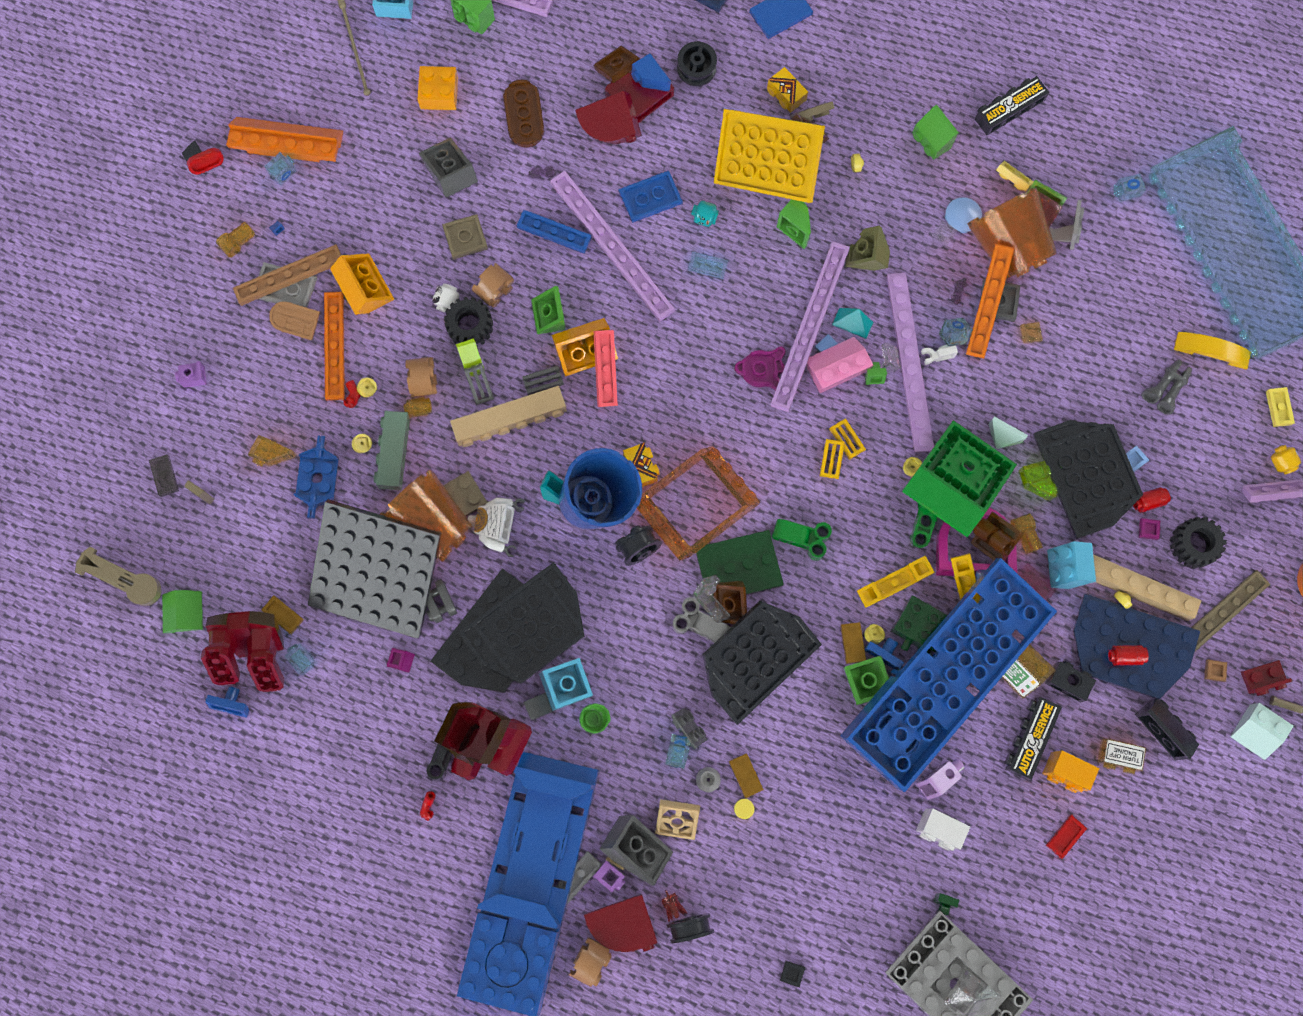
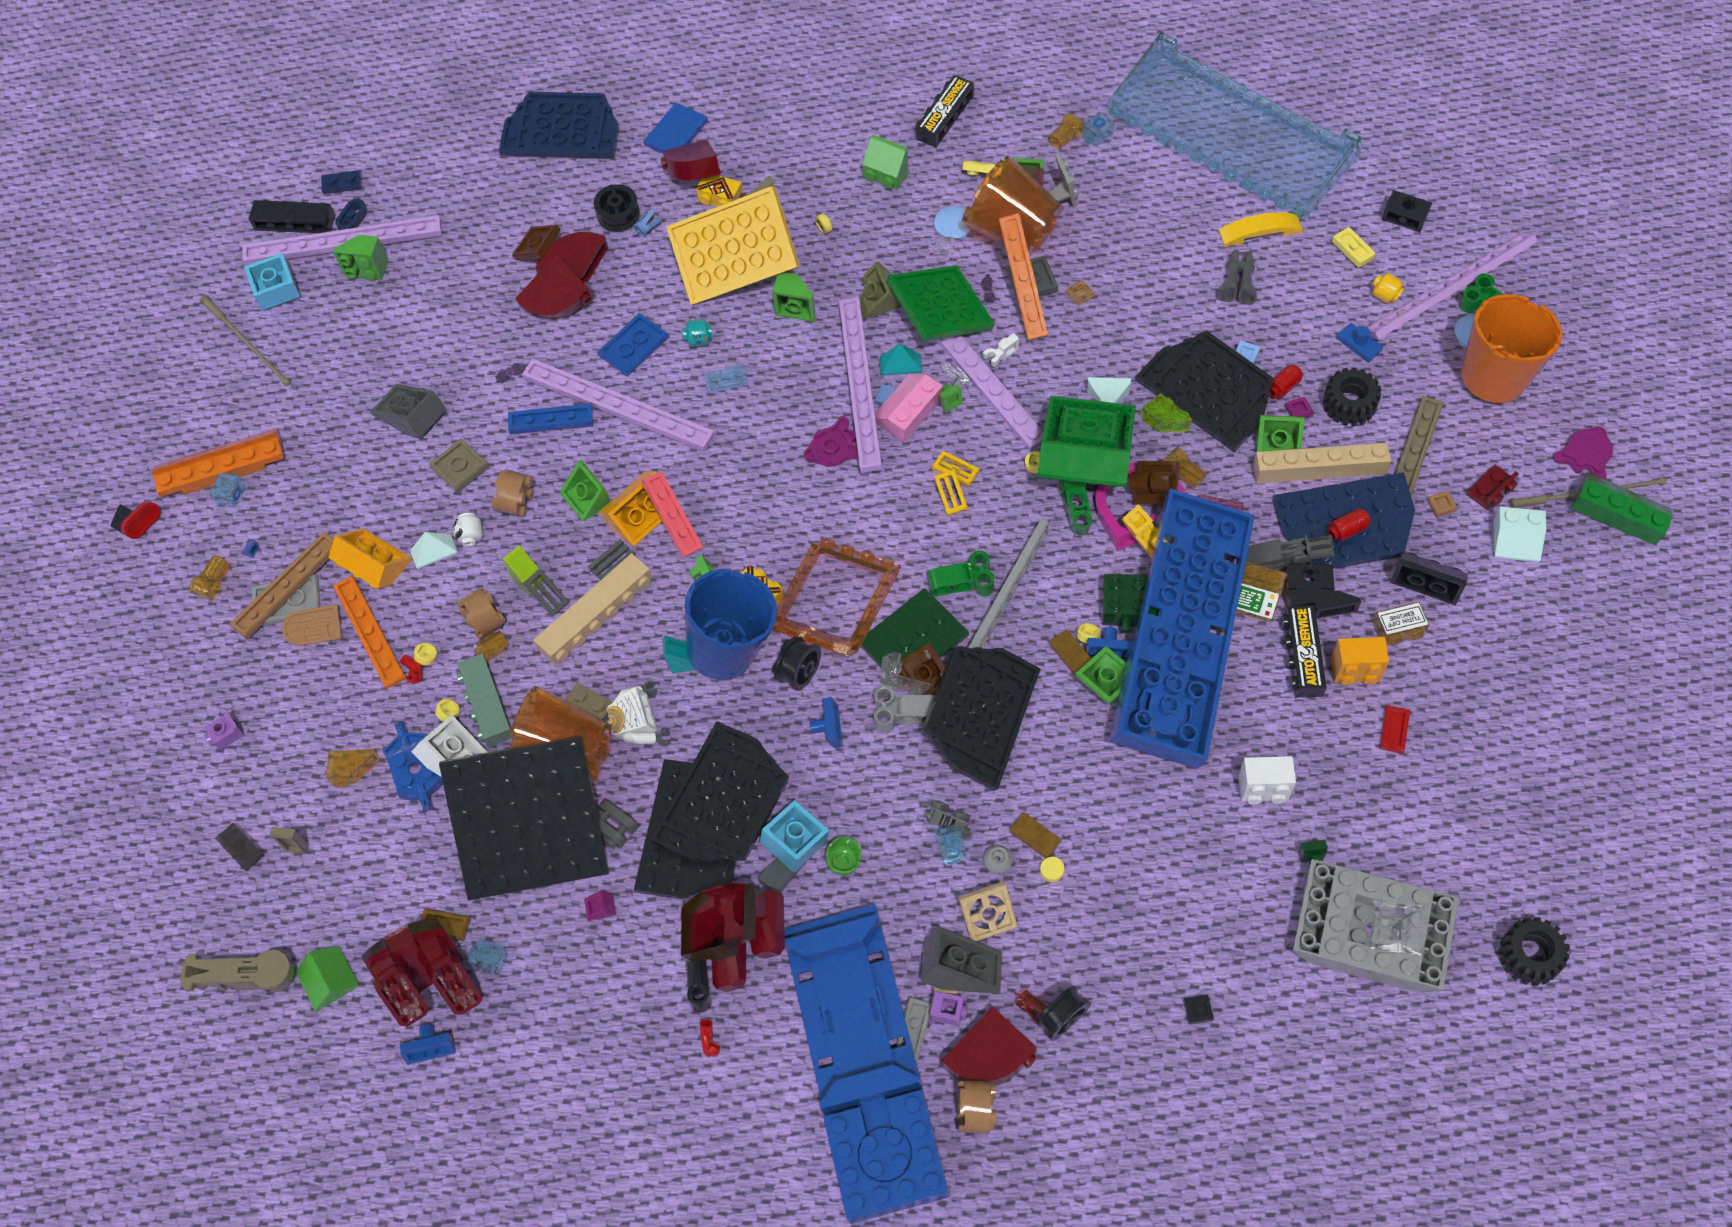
camera: 20 degrees left, 15 degrees down
(349, 482) = (446, 742): none -> white slope
(412, 300) = (432, 548): none -> light aqua slope
(437, 88) = (360, 343): light orange brick -> none
(465, 308) = (497, 527): black tyre -> none
(523, 113) = (462, 329): reddish brown tile -> none
(608, 426) = (703, 566): none -> bright green tile
(639, 605) = (829, 723): none -> blue tile
(650, 74) = (575, 232): blue slope -> none
(709, 90) = (644, 225): none -> medium blue piece
(777, 51) = (691, 161): none -> dark red brick
(837, 562) = (1010, 585): none -> light grey tile
(895, 582) = (1081, 574): yellow slope -> none
(911, 287) = (940, 302): none -> green plate
(941, 779) = (1238, 729): lavender torso -> none
(955, 331) = (1006, 322): clear light blue brick -> none
(1058, 647) = (1277, 554): none -> dark grey arm
(1070, 704) = (1326, 601): none -> black slope
(1071, 565) = (1243, 471): medium azure brick -> none
(1106, 174) = (1070, 127): none -> clear yellow piece
(1118, 546) = (1279, 433): none -> bright green slope
(1124, 599) = (1312, 481): light yellow tile -> none
(1234, 495) = (1360, 342): none -> blue tile

